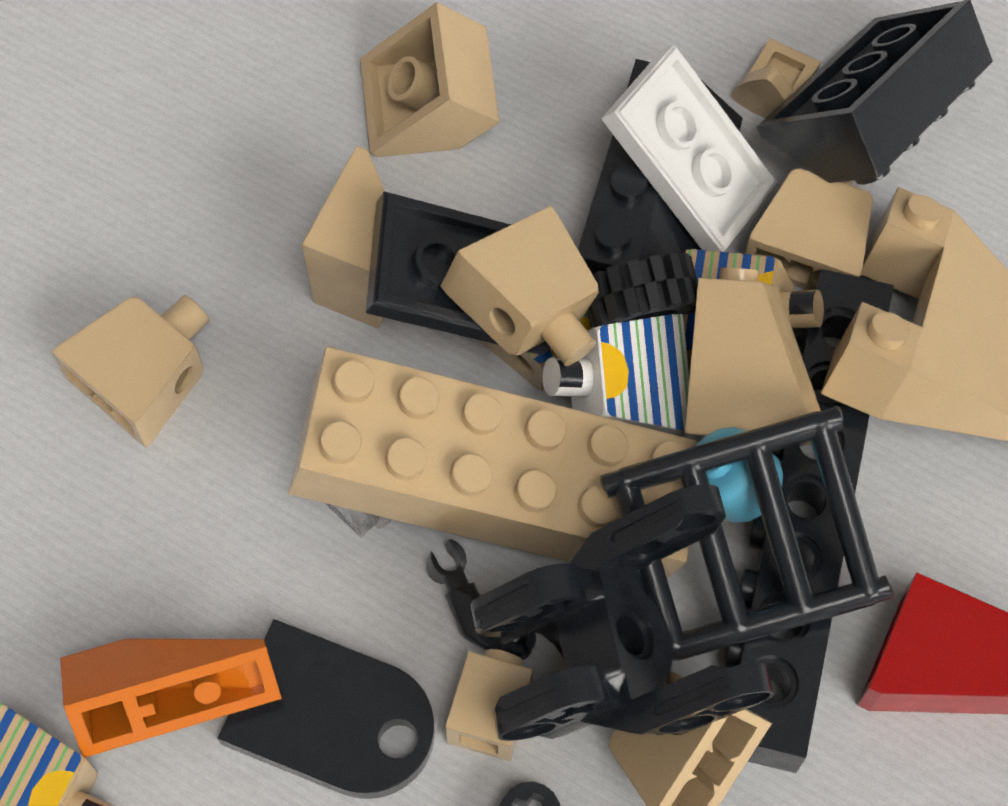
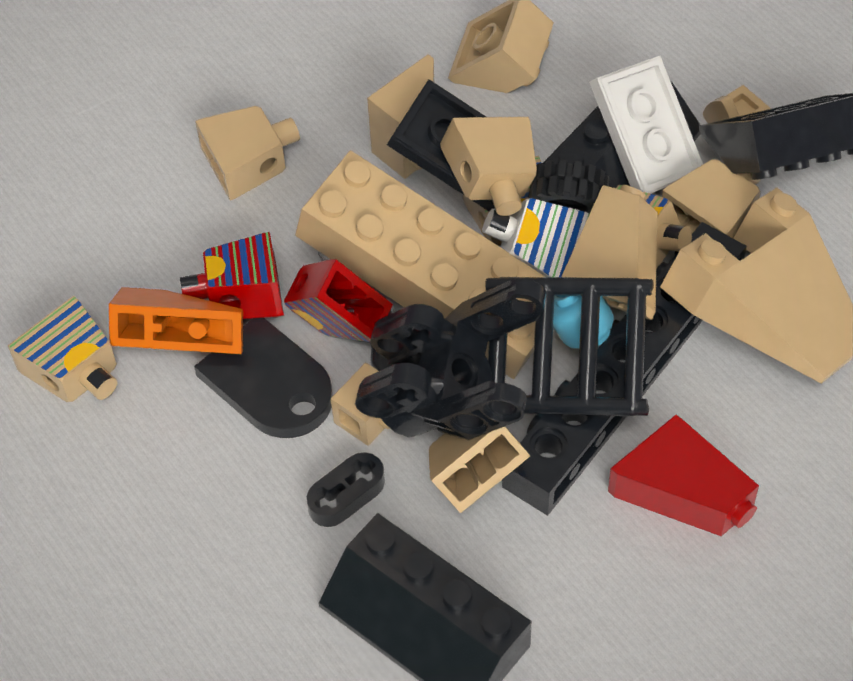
camera: 25 degrees right, 10 degrees down
(225, 579) = (240, 276): none -> red torso
(353, 568) = (325, 293): none -> red torso

